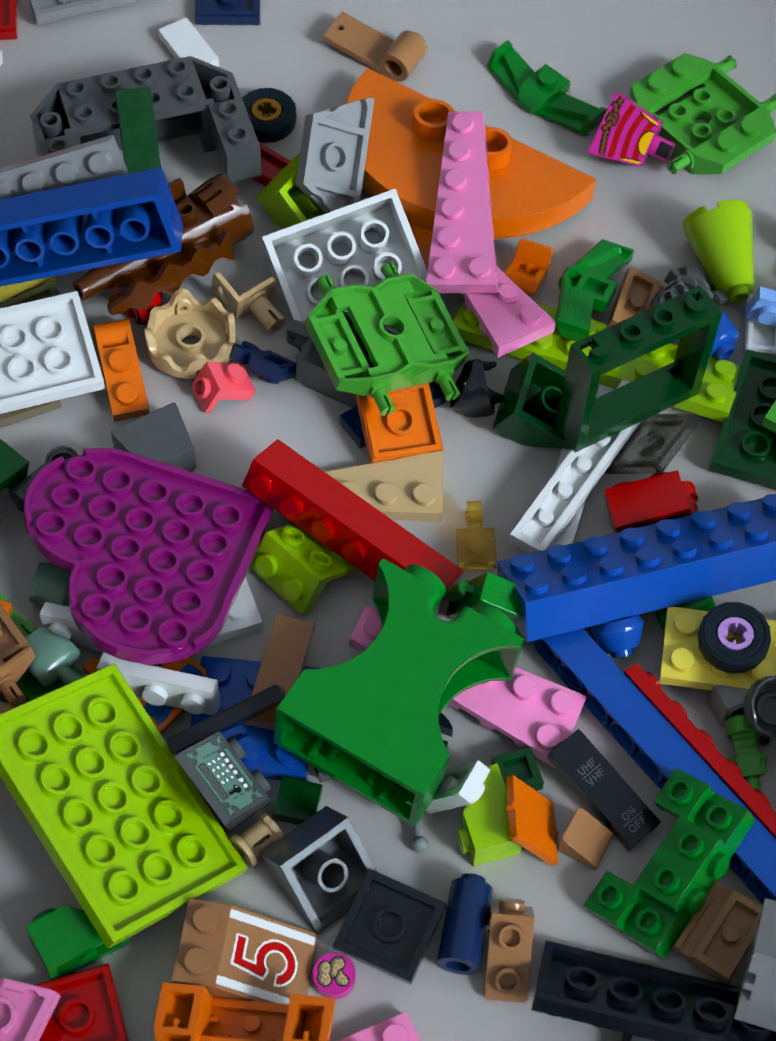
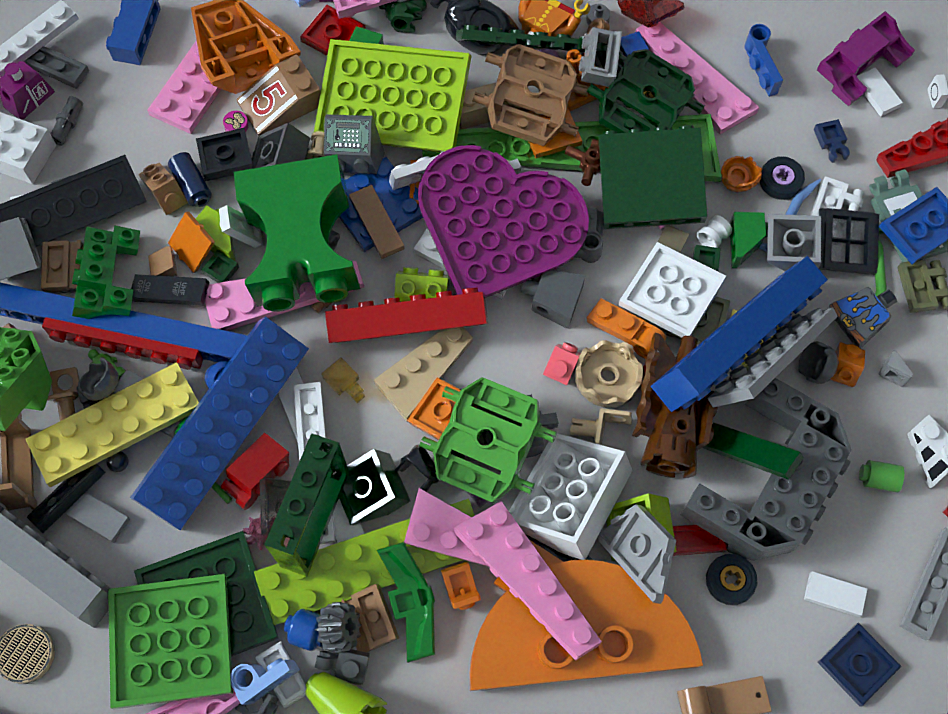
camera: 140 degrees right, 10 degrees up
(33, 80) = (882, 476): none -> bright green brick
(53, 658) = (489, 140): sand green piece -> none
(227, 718) = (373, 170): black tile -> none
(270, 366) = (550, 392): dark blue plate -> none
(483, 589) = (302, 324): green piece -> none
(695, 453) = (256, 537): none -> clear pink gear
(732, 656) = (150, 413): black bush -> none

